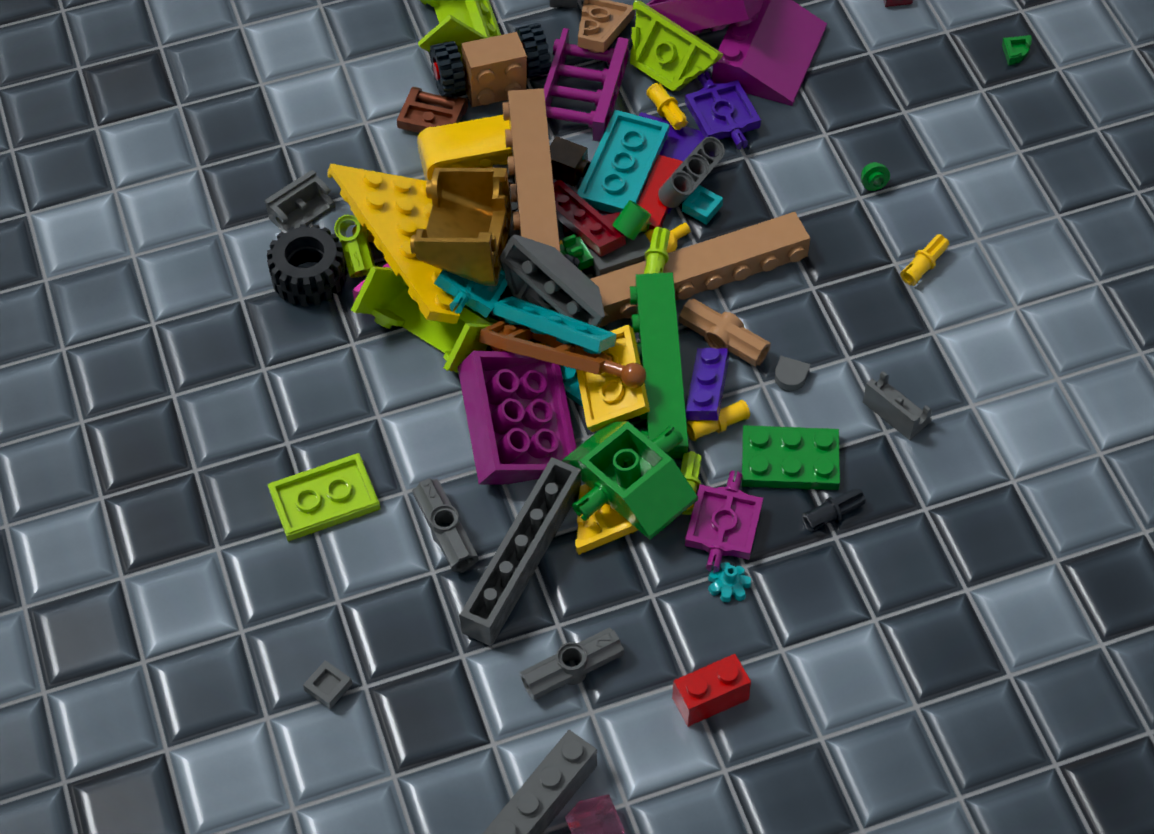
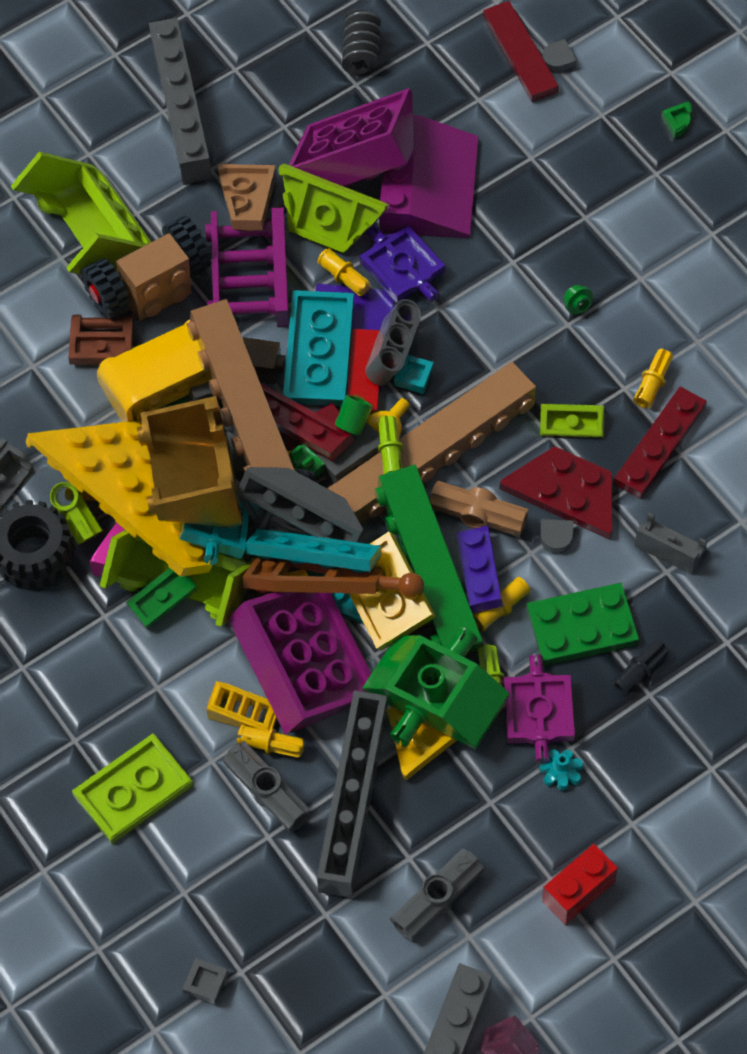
camera: 15 degrees left, 5 degrees up
(407, 337) = (161, 597): none -> green plate
(440, 436) = (235, 694): none -> yellow slope
(464, 487) = (271, 741): none -> yellow axle
(812, 335) = (566, 488): none -> dark red wing
(837, 278) = (572, 420): none -> lime slope
(914, 317) = (660, 442): none -> dark red plate

